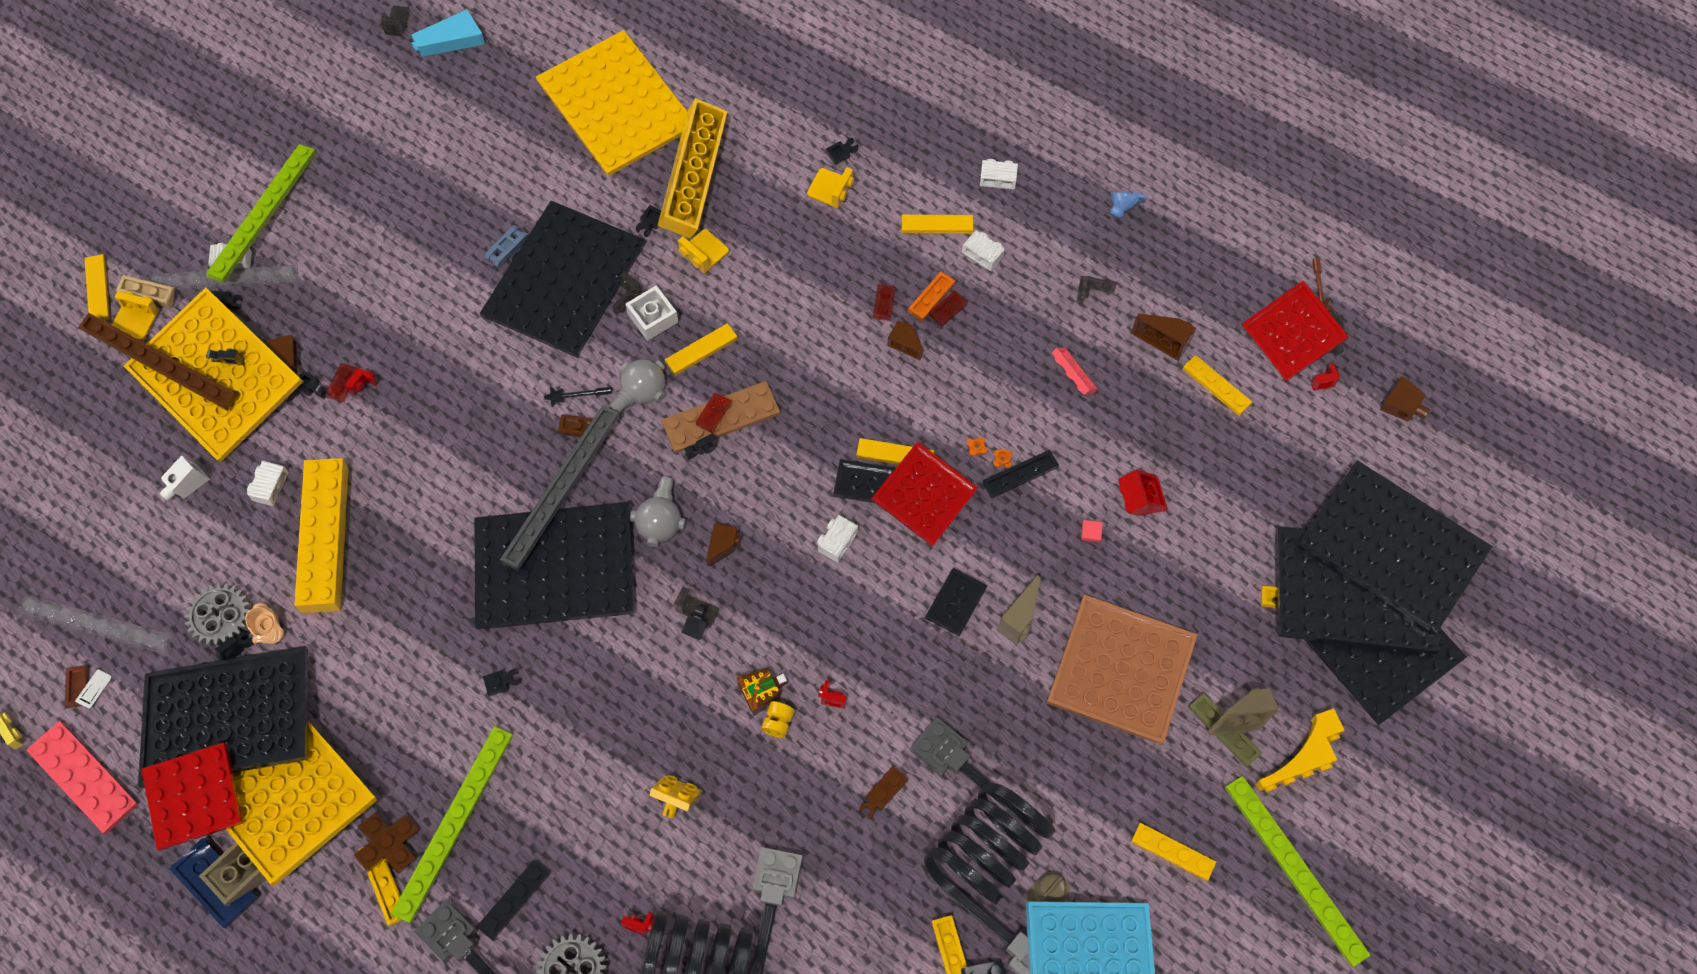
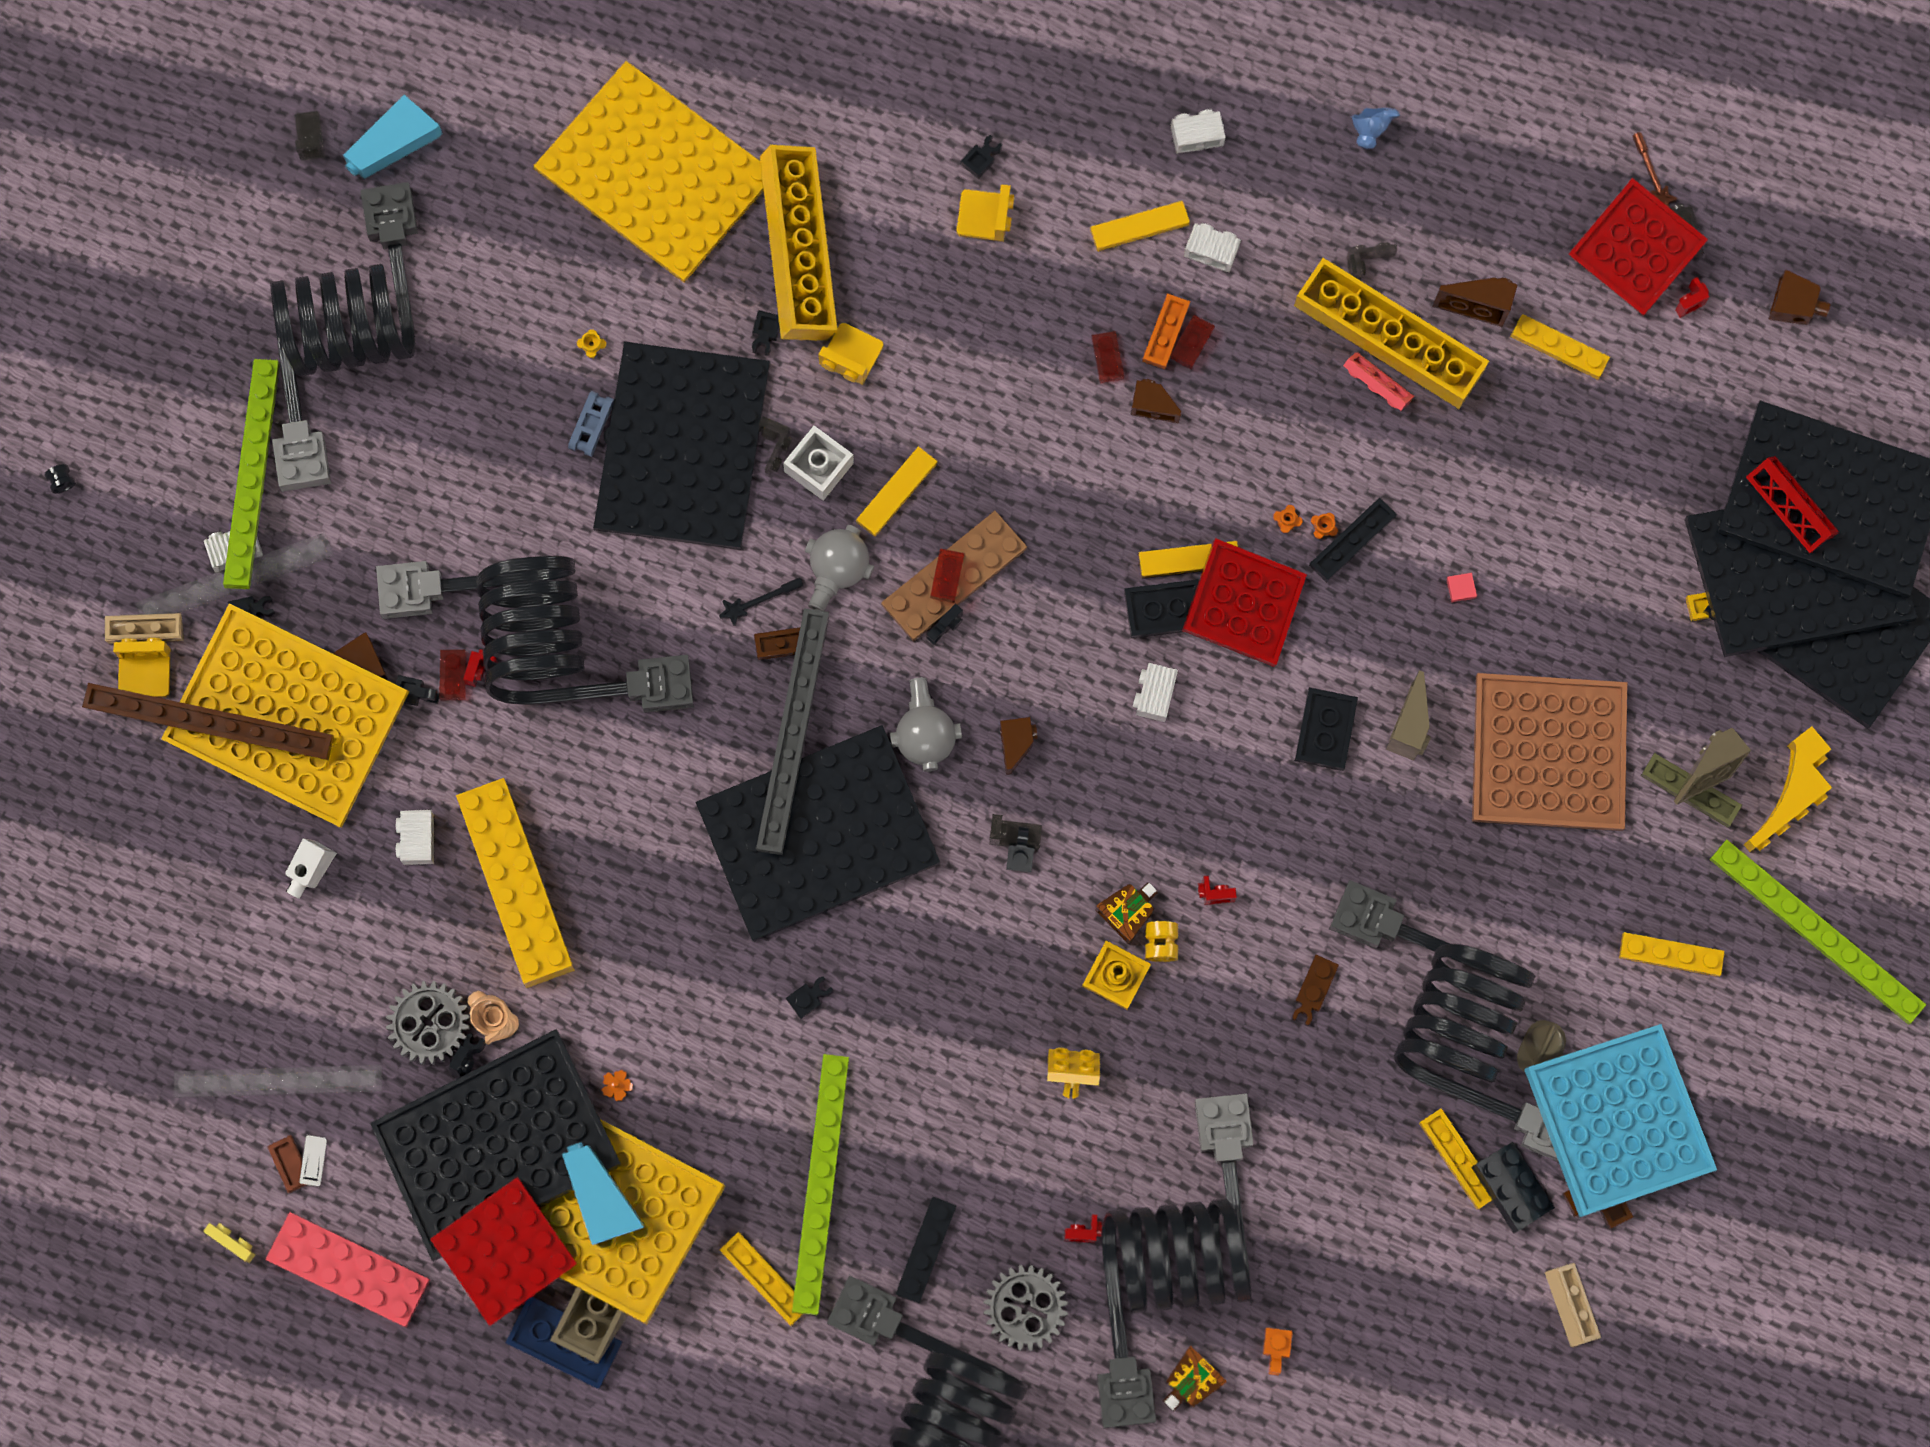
camera: 20 degrees left, 10 degrees up
(97, 286) = (73, 641): yellow tile -> none
(136, 182) = (59, 478): none -> black wheel
(229, 356) = (305, 688): black plate -> none
(276, 776) = (599, 1198): none -> medium azure slope
(335, 702) = (616, 1085): none -> orange plant
(336, 316) = (532, 589): none -> black piece
(386, 843) = (751, 1232): reddish brown plate -> none
(426, 81) = (389, 218): none -> black piece
(528, 191) = (591, 336): none -> yellow plate
(735, 735) = (1116, 975): none -> yellow plate
(1094, 340) = (1391, 333): none -> yellow brick
(1142, 493) = (1509, 520): red slope -> none
(1368, 533) = (1799, 497): none -> red fence

